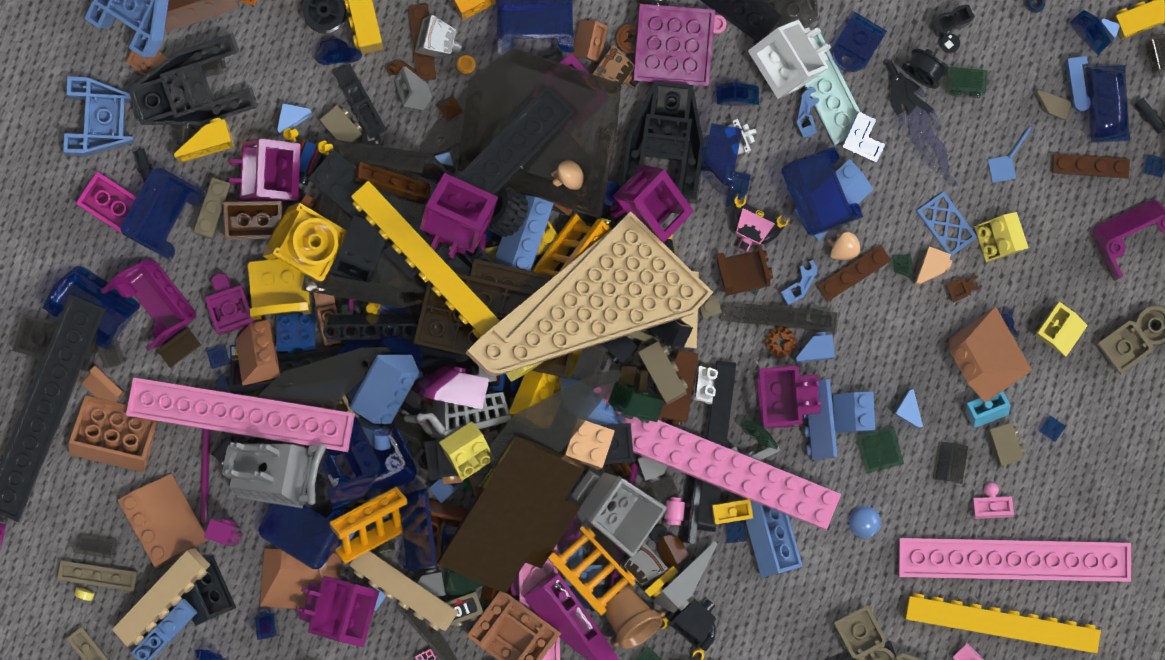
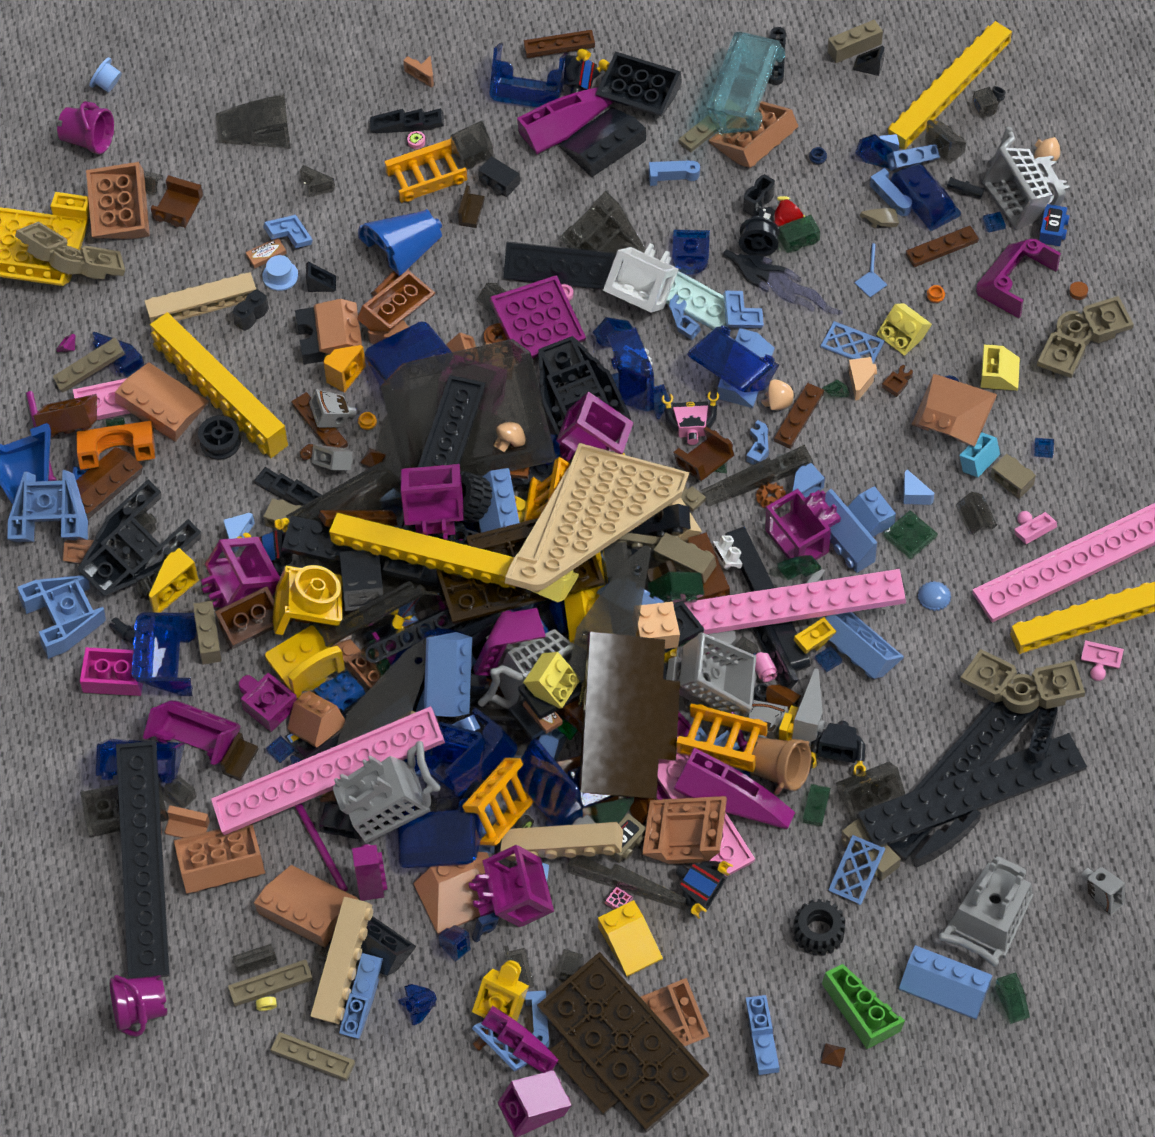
camera: 20 degrees left, 25 degrees down
(297, 628) = (484, 924): none -> dark blue tile
(337, 51) = (249, 462): clear blue piece -> none
(965, 55) = (786, 211): none -> red hat
(1053, 214) = (935, 294): none -> orange plate
(1121, 57) = (912, 156): none -> medium blue leg

